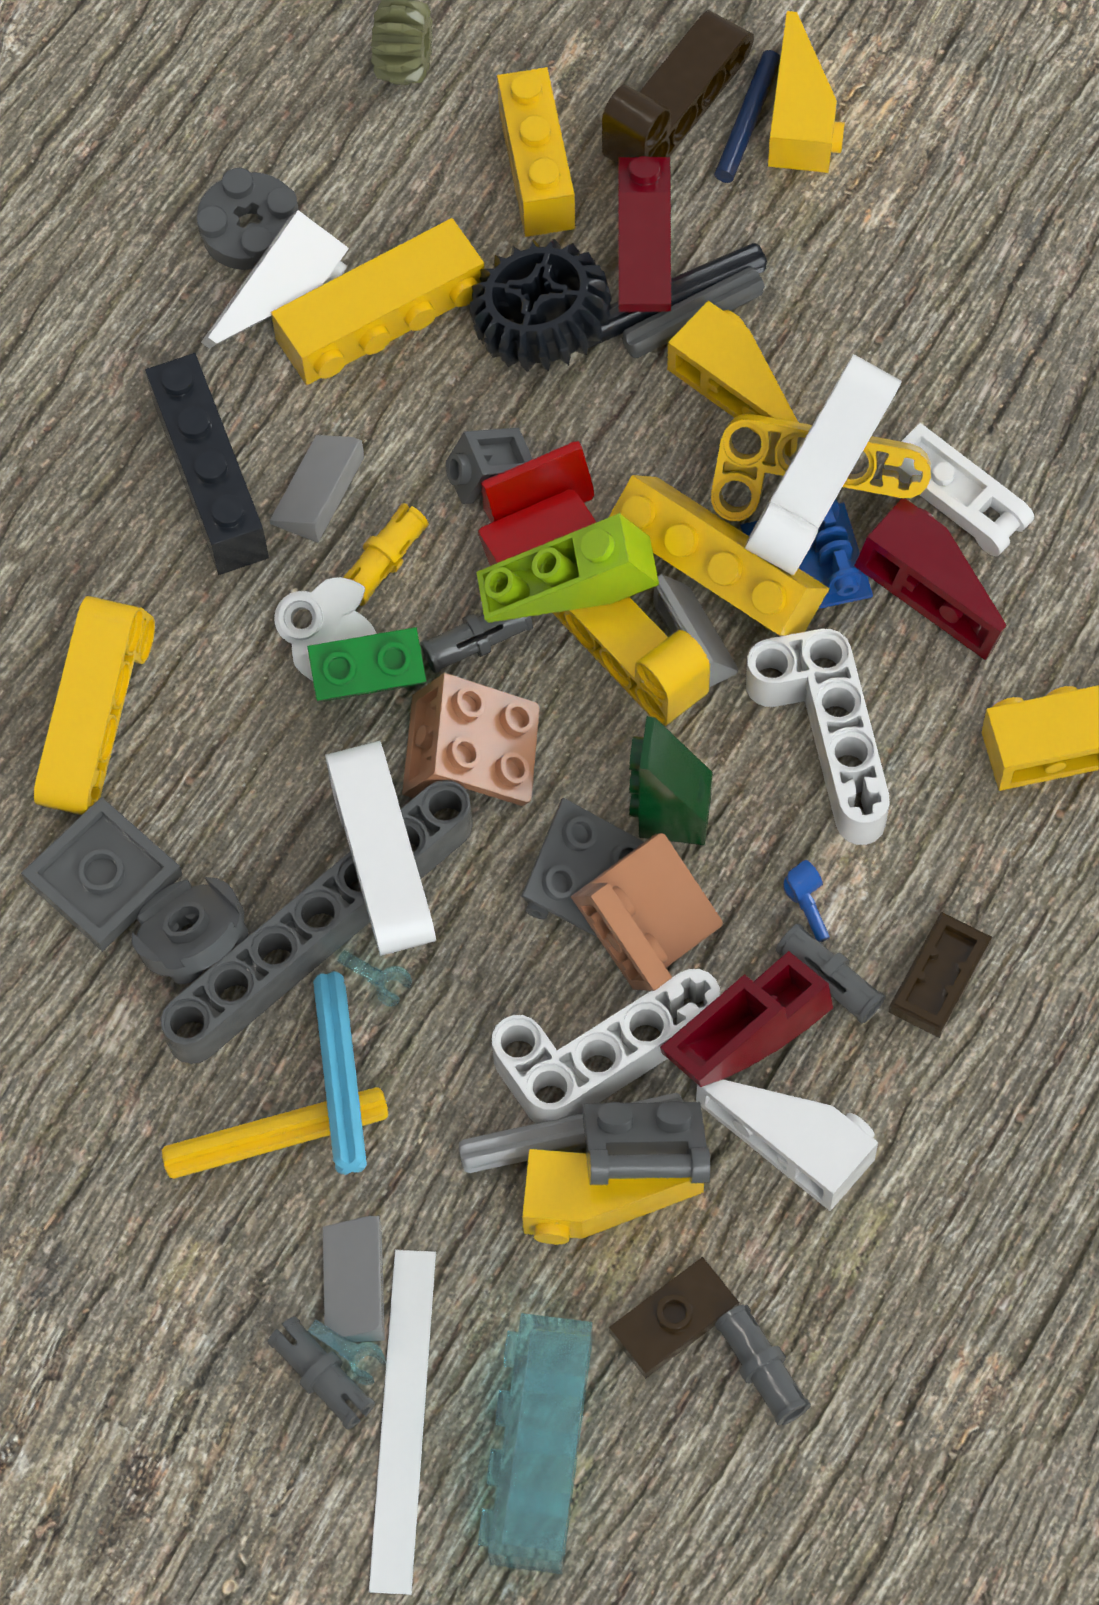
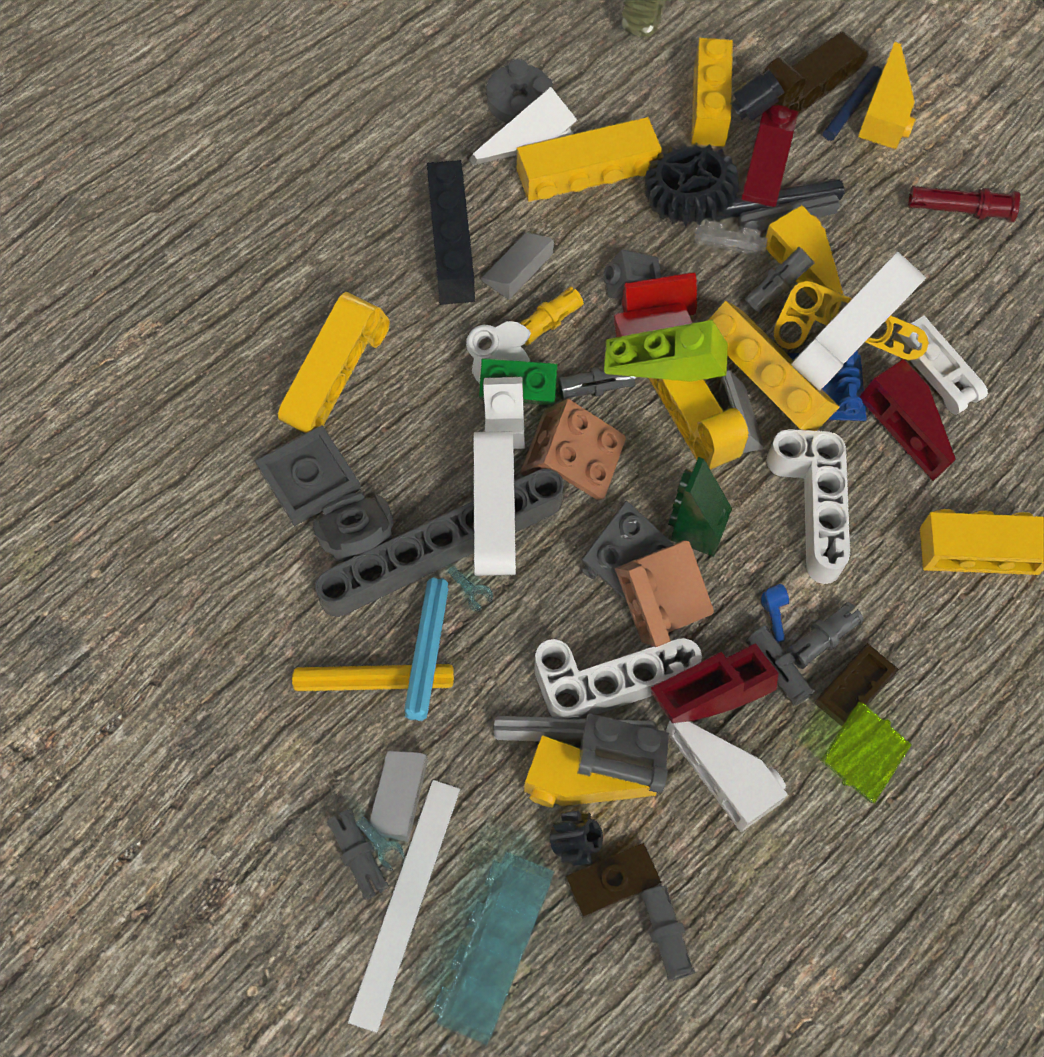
camera: 10 degrees right, 0 degrees up
(358, 707) = (505, 407): none -> white slope
(603, 152) = (756, 95): none -> black brick
(610, 1273) = (576, 837): none -> black gear
(640, 372) = (745, 241): none -> clear plate
(702, 422) = (779, 280): none -> dark grey pin
(882, 915) = (825, 635): none -> dark grey pin
(966, 231) = (979, 203): none -> dark red pin
(972, 1060) = (866, 752): none -> clear neon green piece

